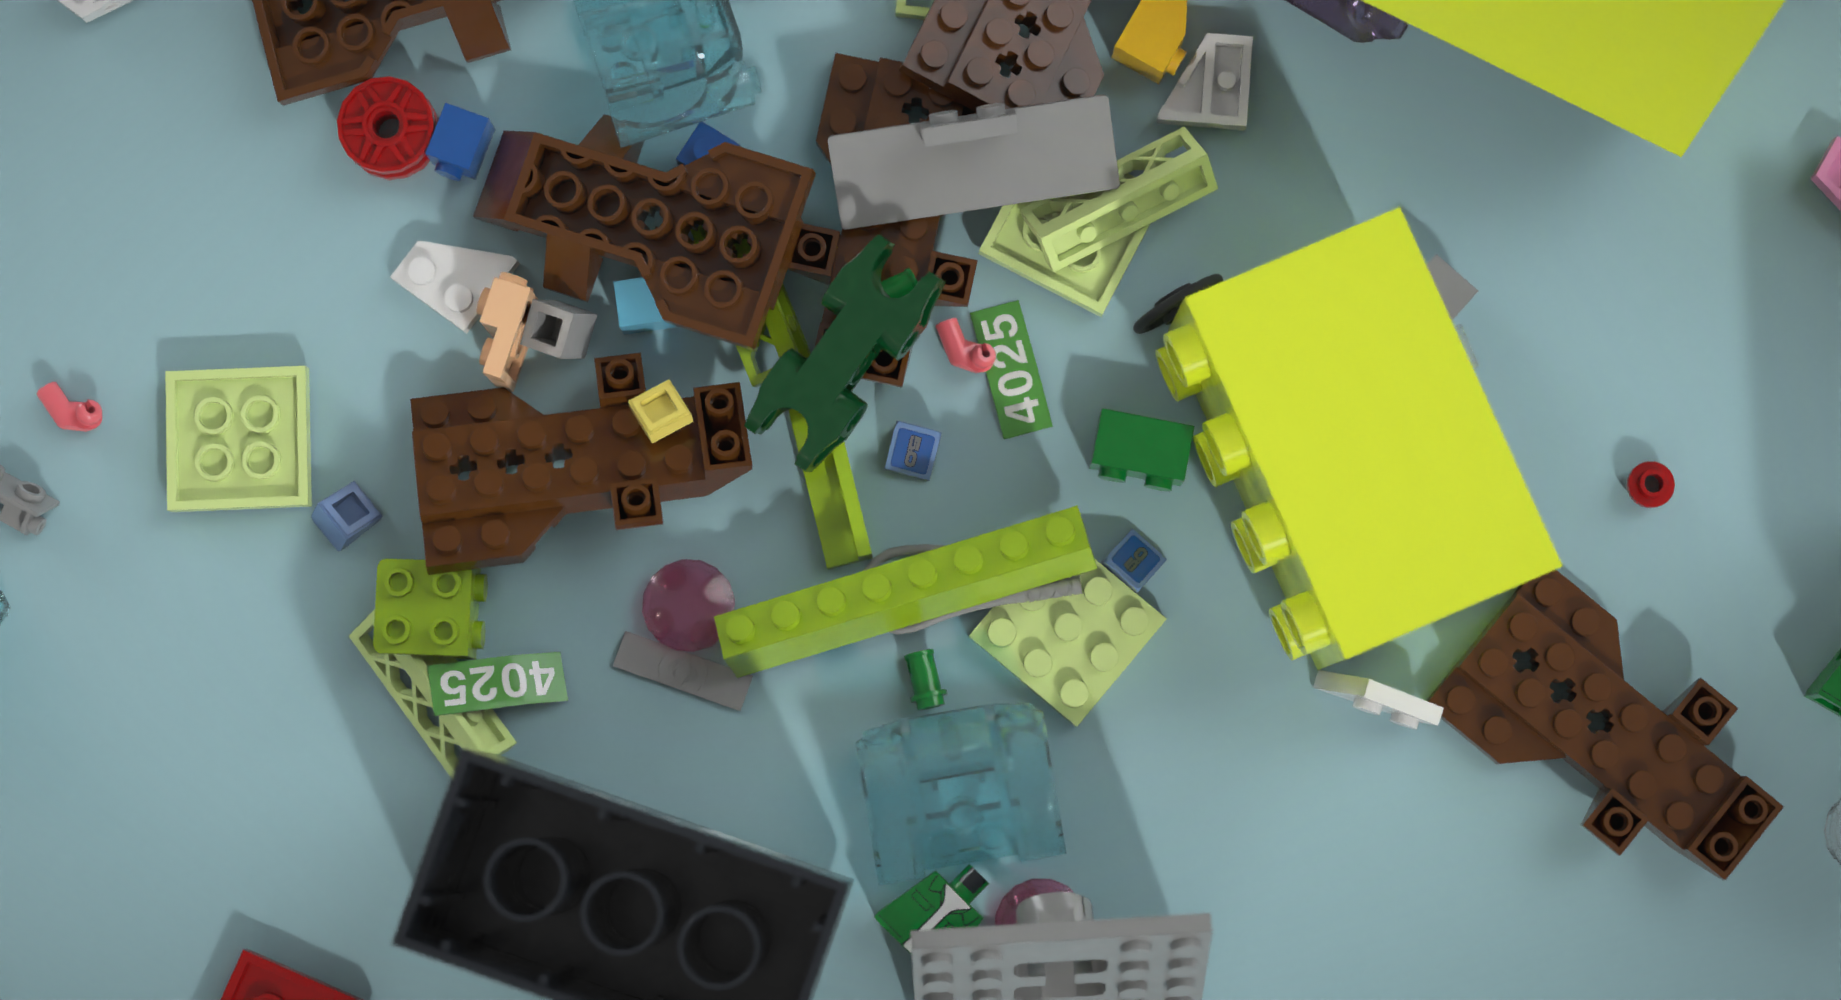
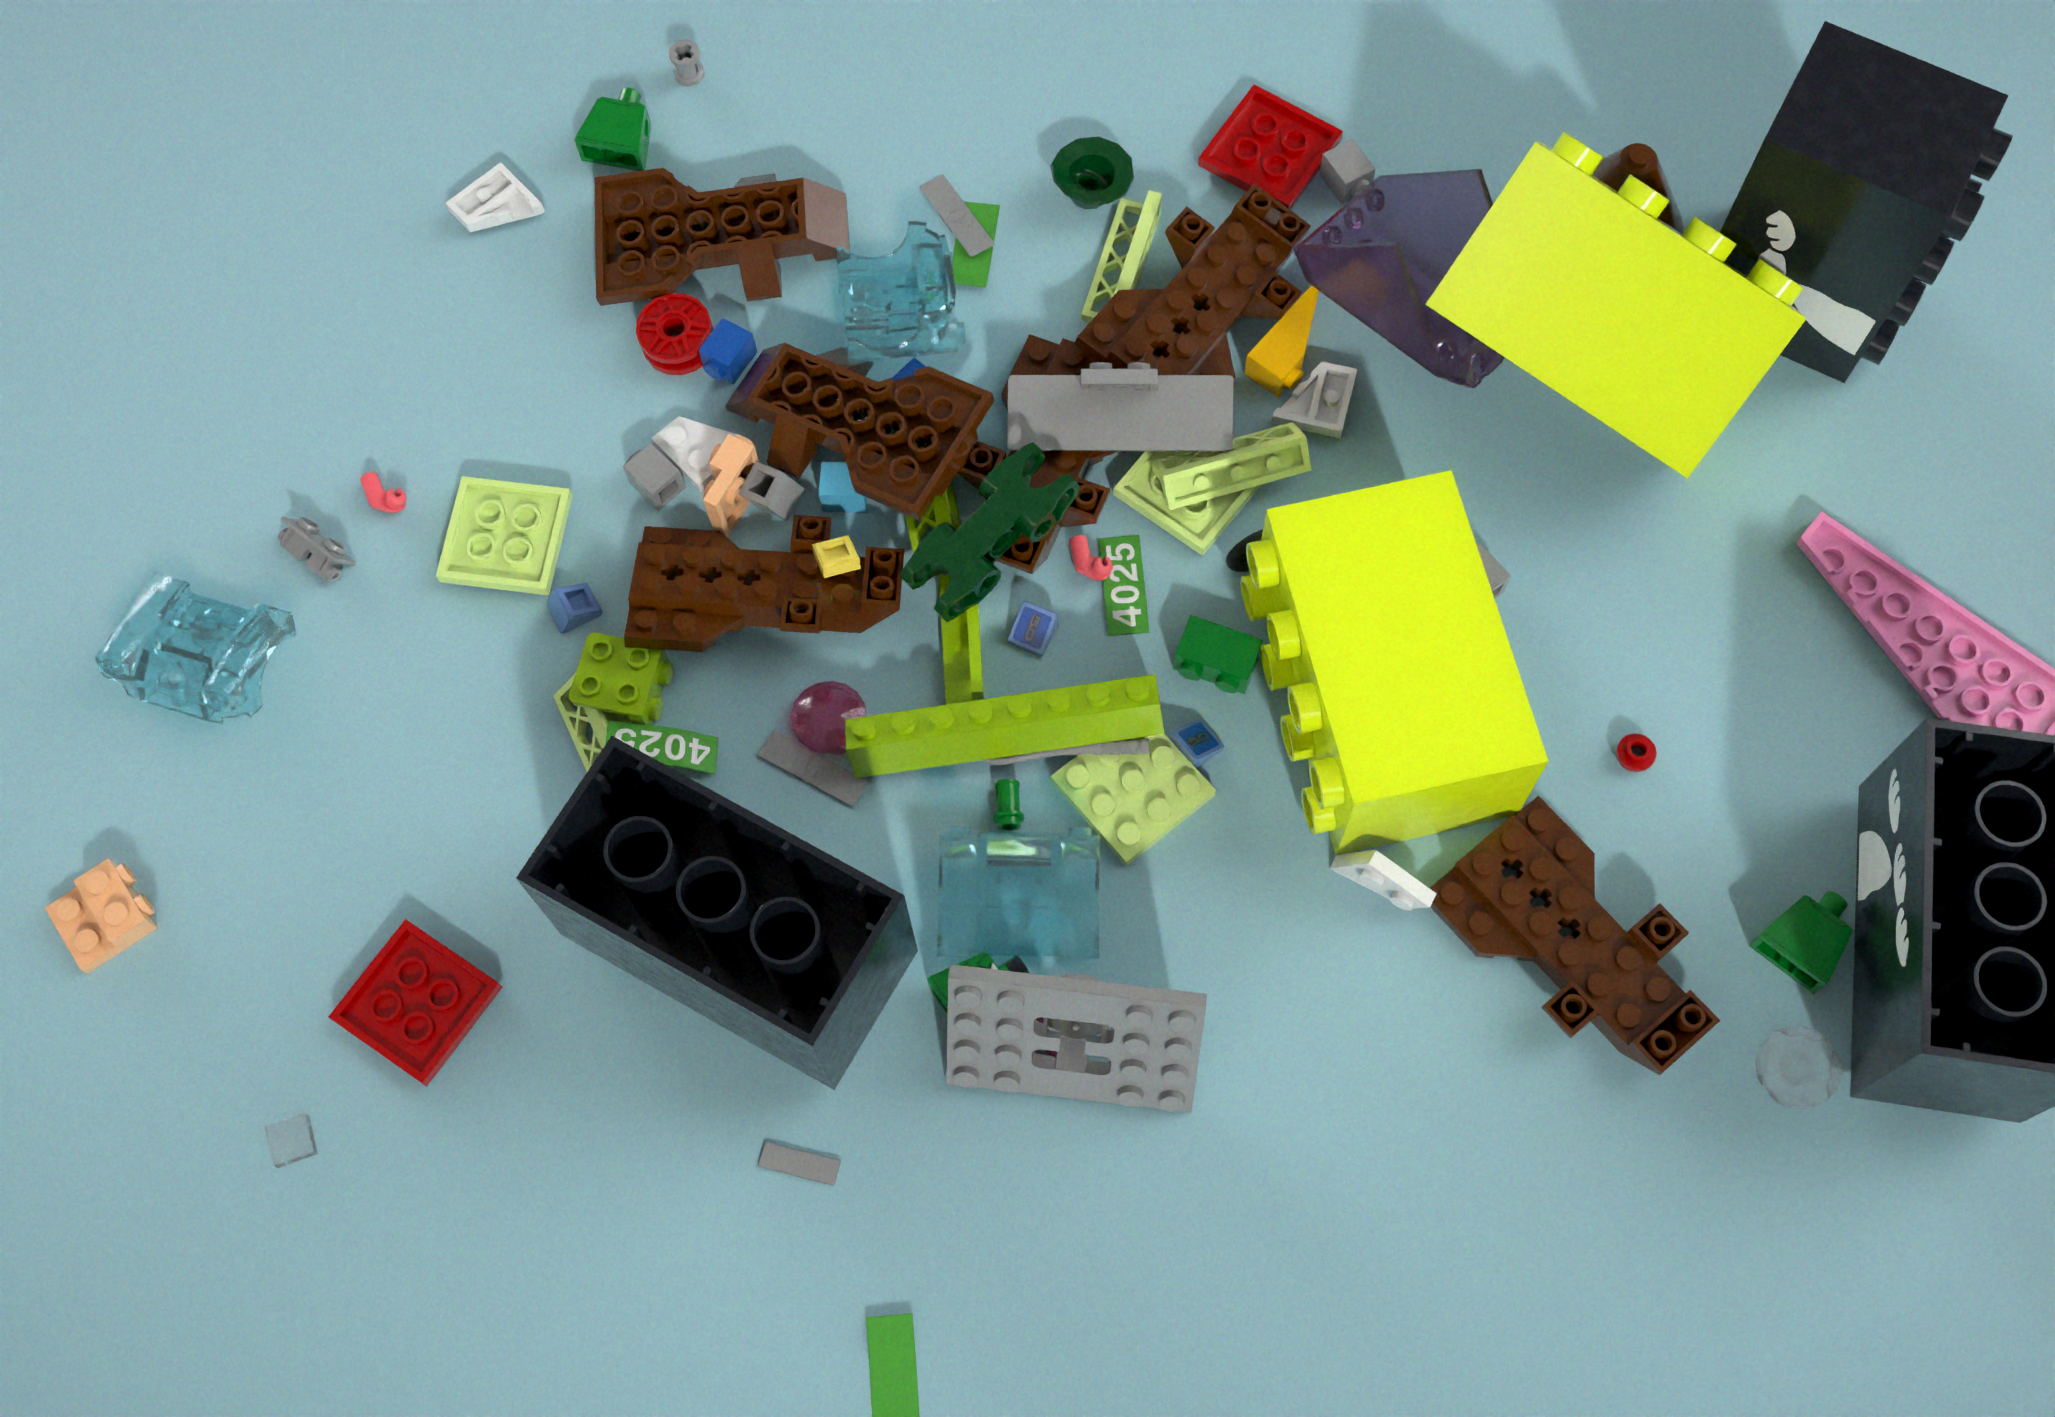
camera: 15 degrees right, 15 degrees down
(405, 329) = (654, 476): none -> light grey brick

